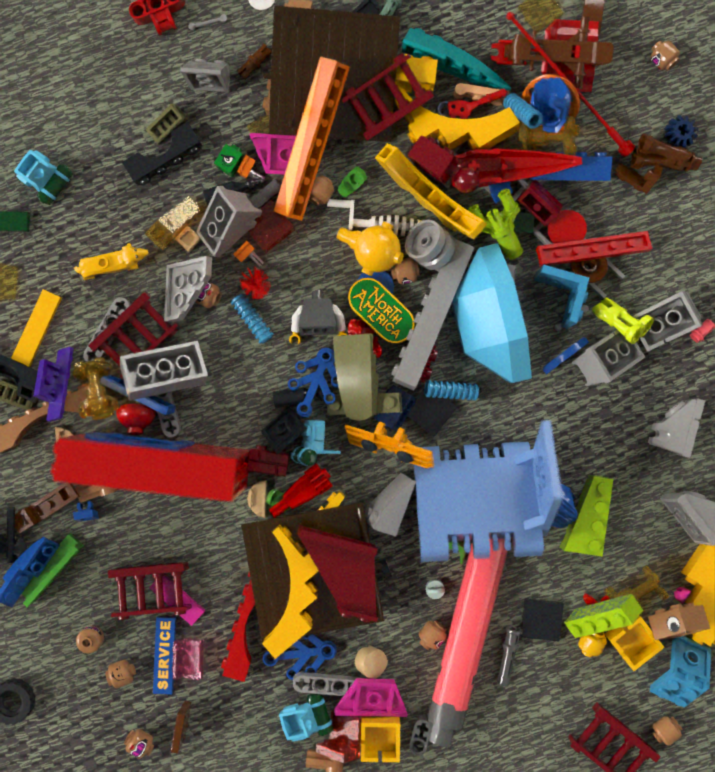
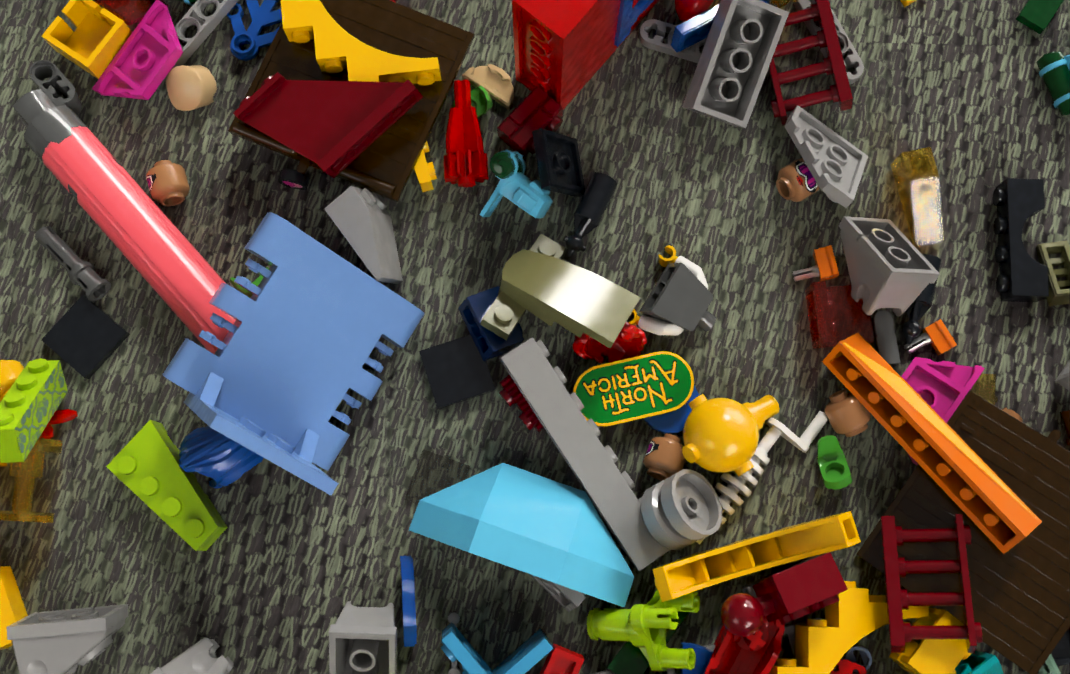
camera: 125 degrees right, 10 degrees down
(111, 262) = (914, 90): yellow animal -> none
(188, 238) = (886, 204): tan tile -> none
(229, 159) = (963, 320): green brick -> none
(252, 318) = (730, 217): dark azure piece -> none
(255, 283) = (775, 246): red piece -> none
(316, 379) = (596, 247): blue plant -> none
(398, 444) = (440, 293): light orange piece -> none
(435, 589) = (223, 226): light aqua tile -> none
(451, 390) = (464, 413): dark azure piece -> none

